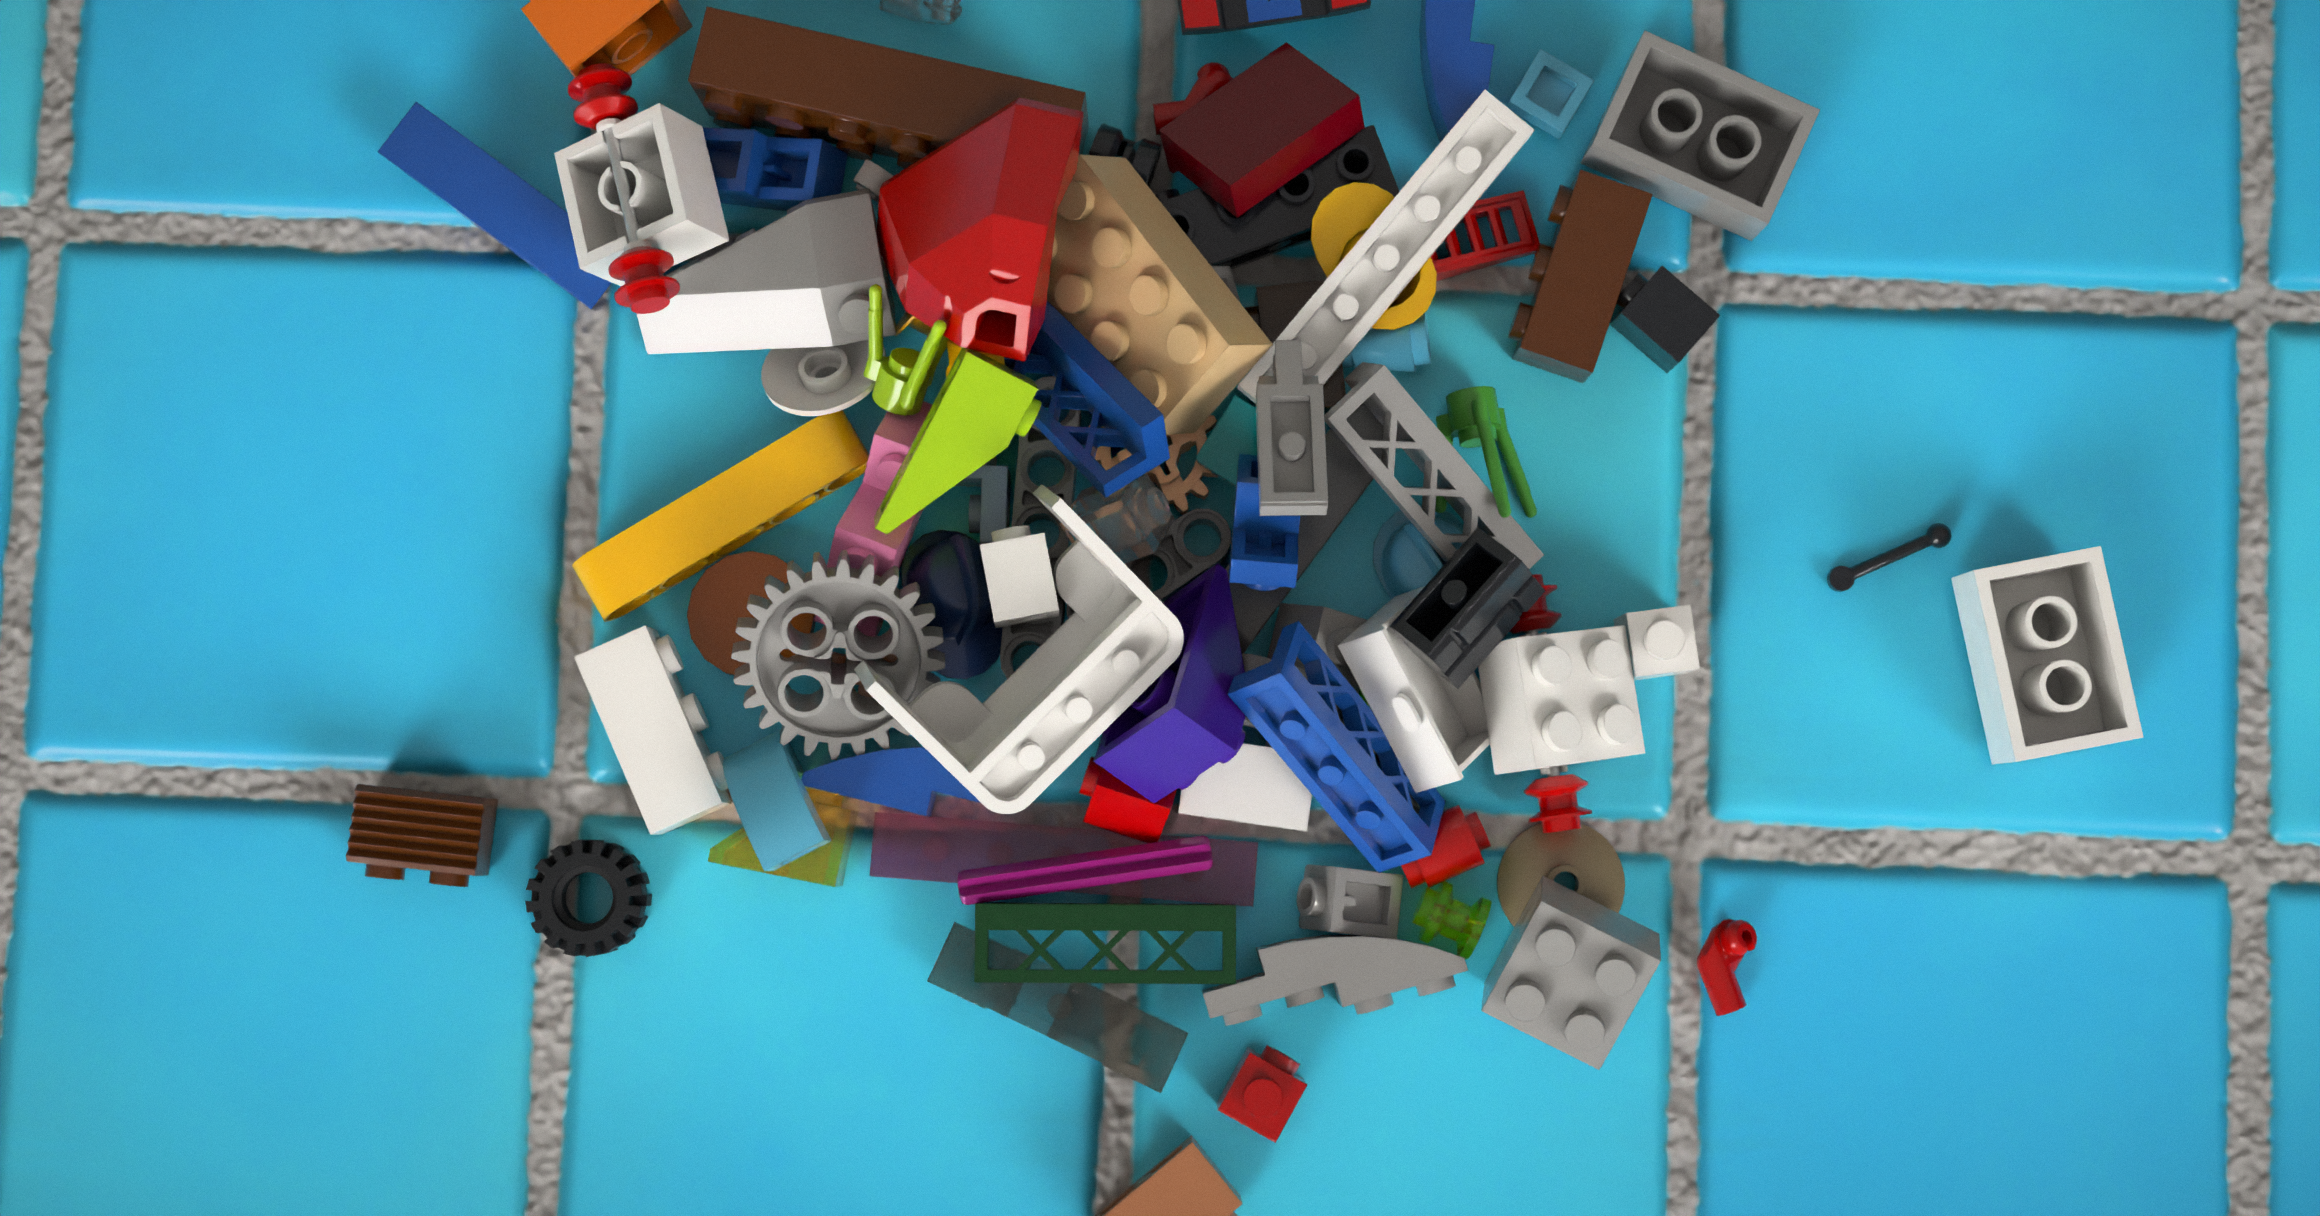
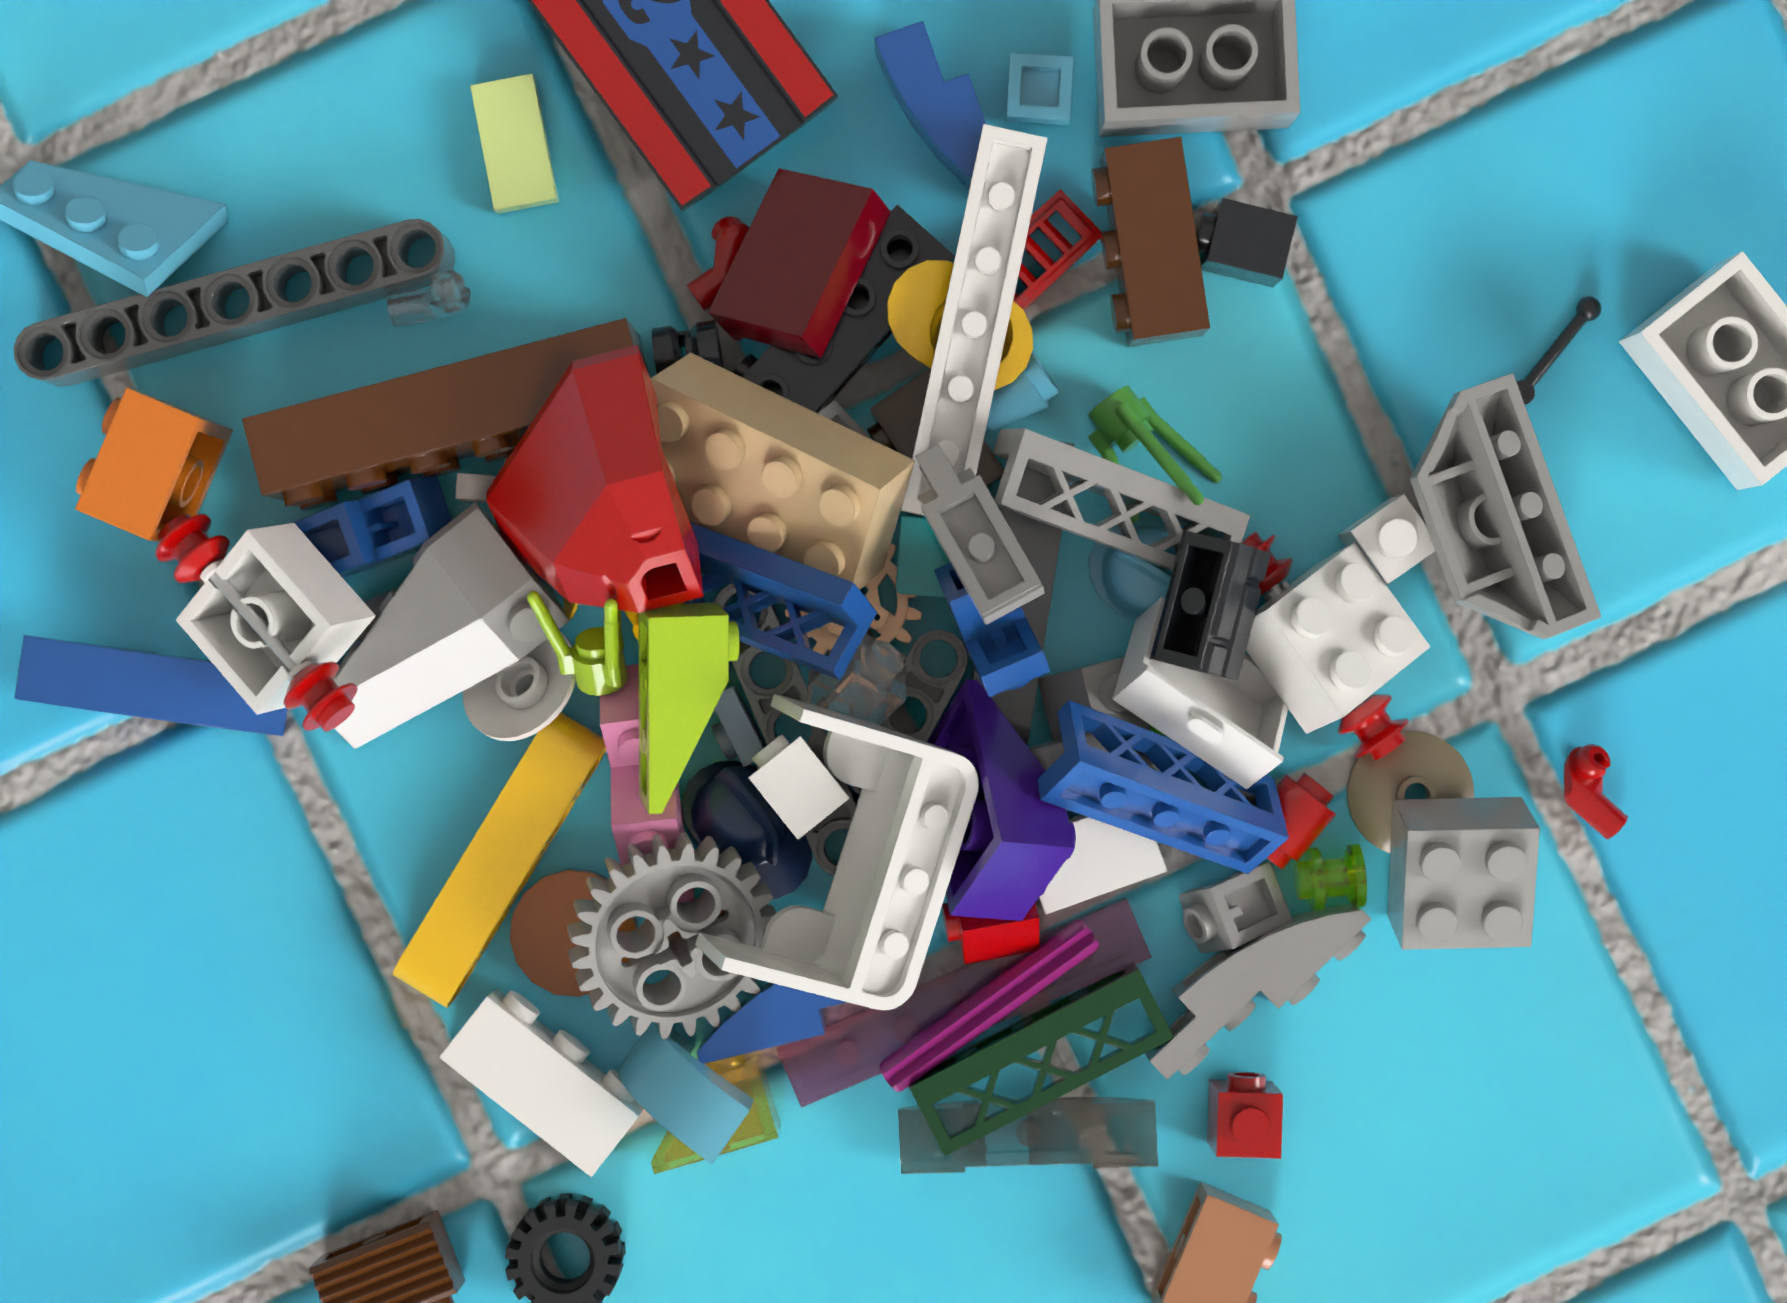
camera: 25 degrees left, 5 degrees up
(1766, 668) = (1500, 515): none -> light grey wedge

